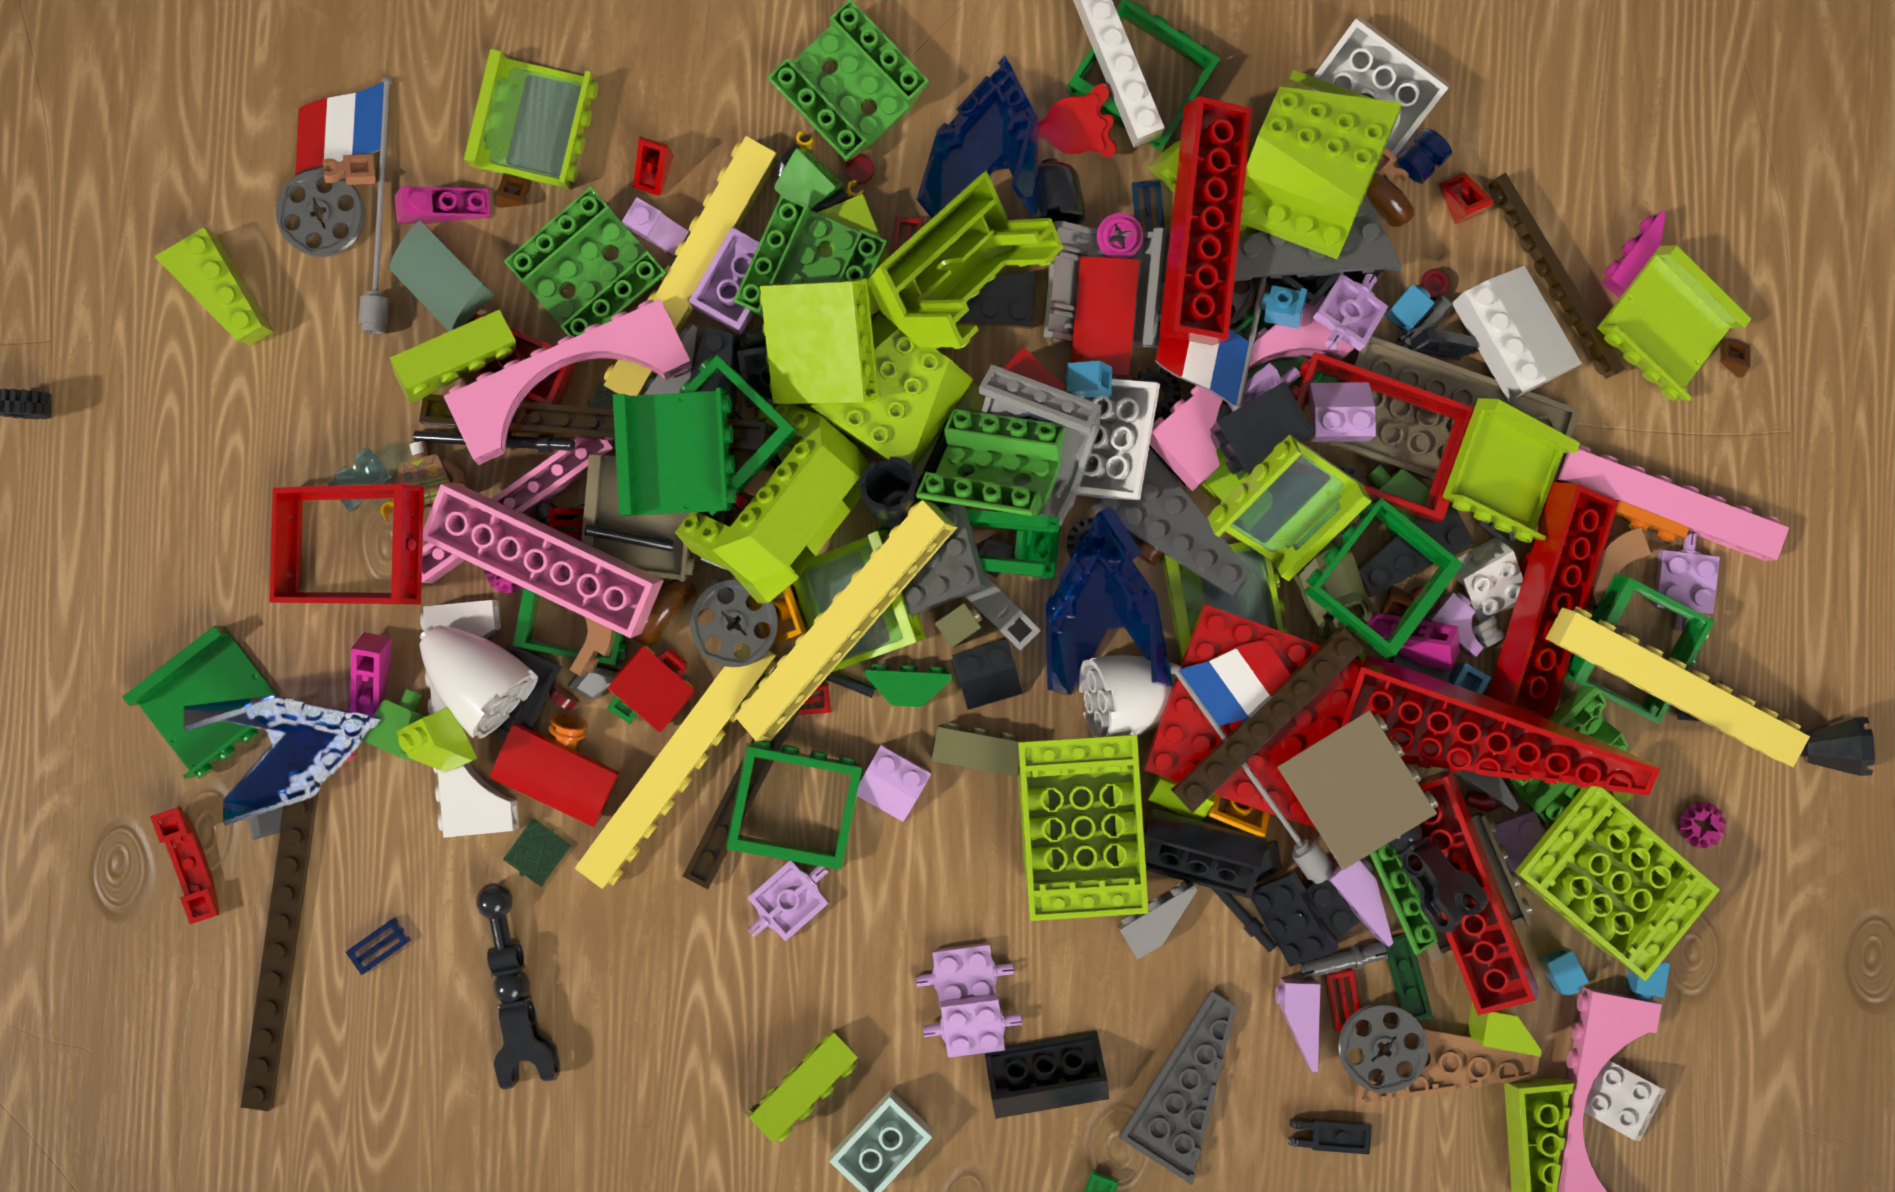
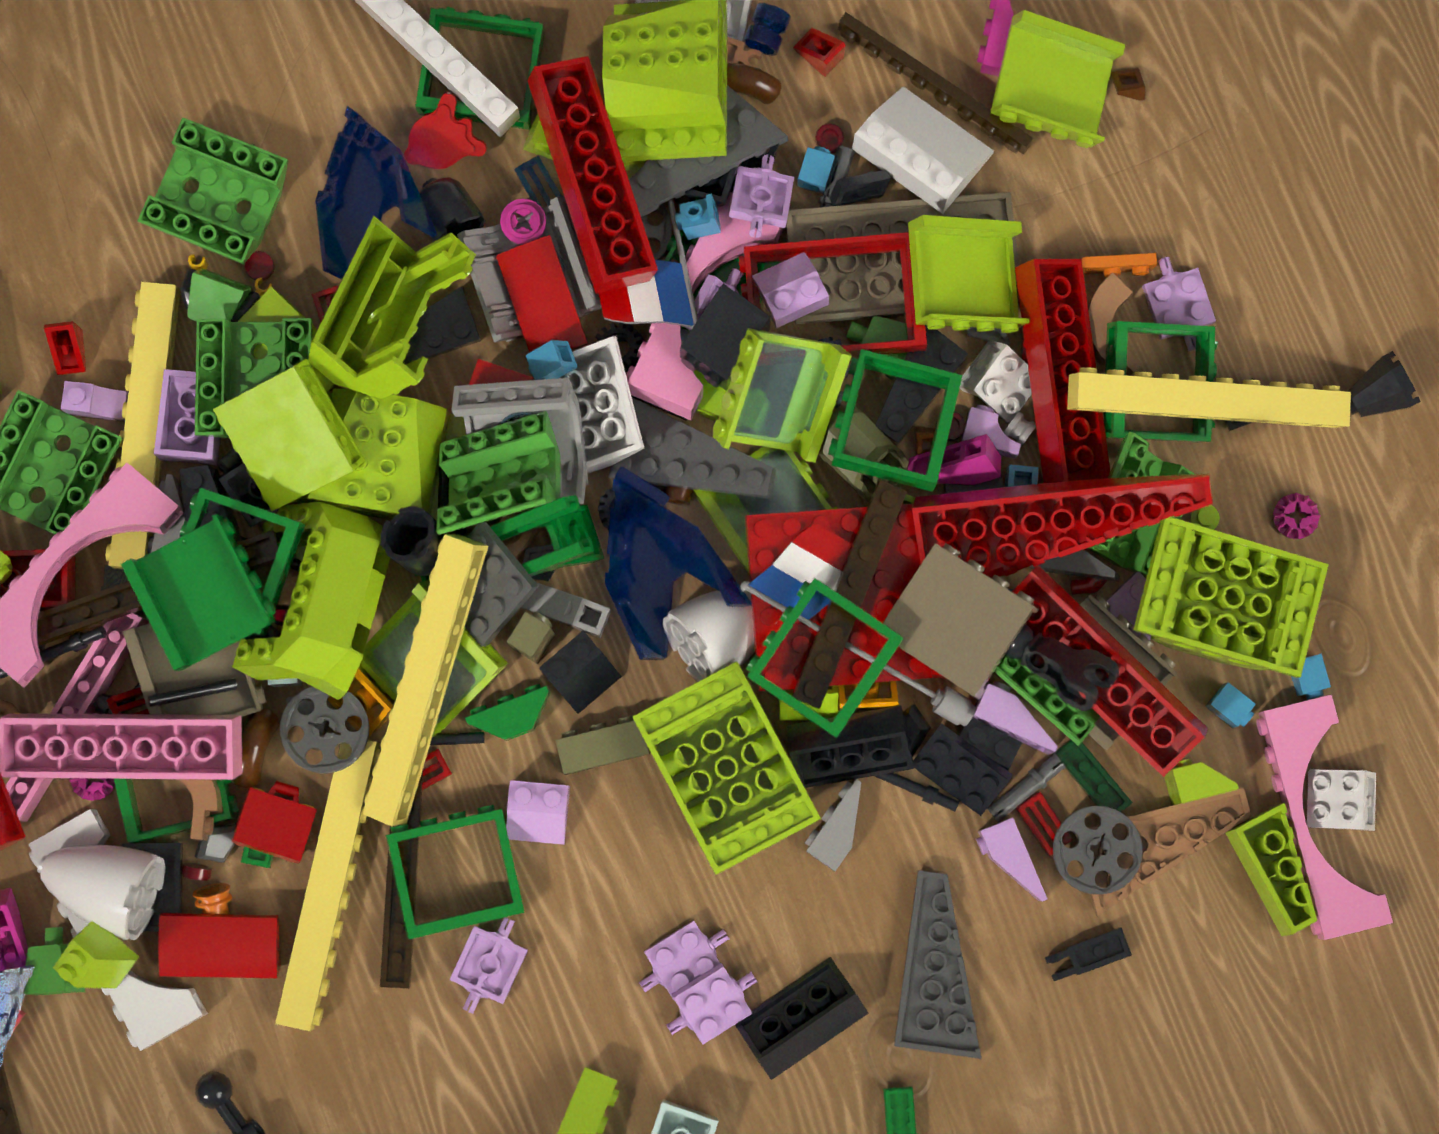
camera: 25 degrees left, 5 degrees down
(537, 852) = (234, 1028): clear green piece -> none
(1248, 810) = (789, 618): none -> green window
(1704, 515) = (1166, 237): bright pink brick -> none

